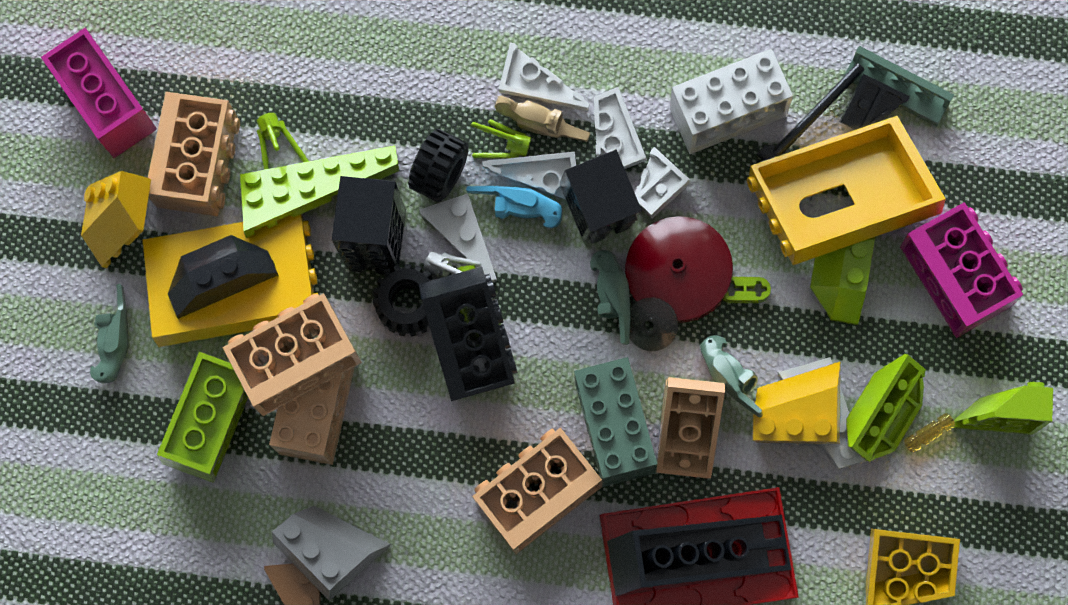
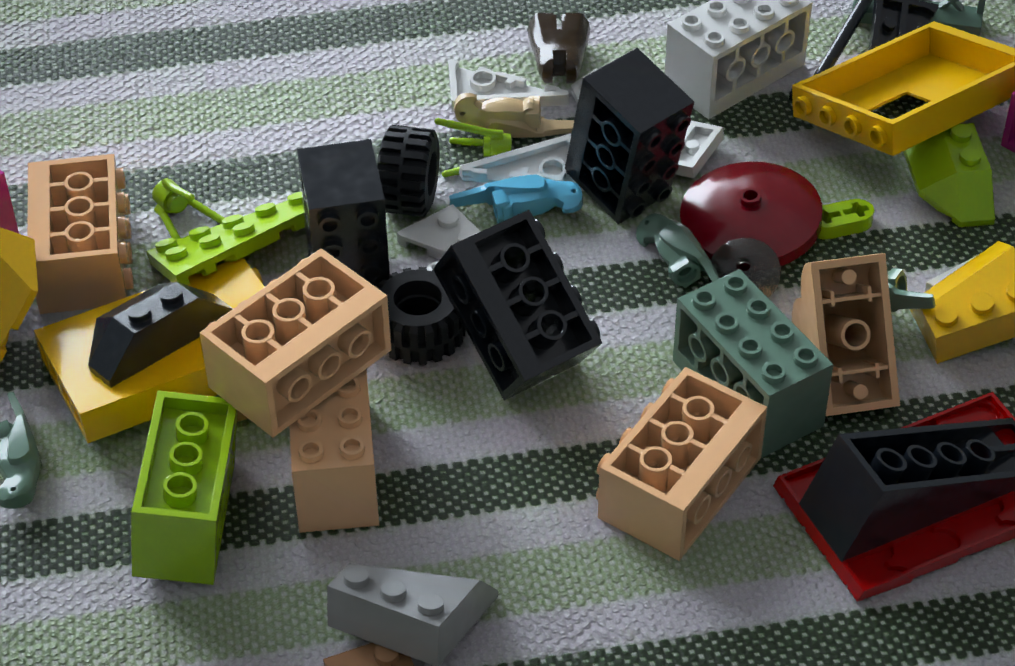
camera: 25 degrees left, 30 degrees down
(597, 55) = (559, 50): none -> dark brown piece

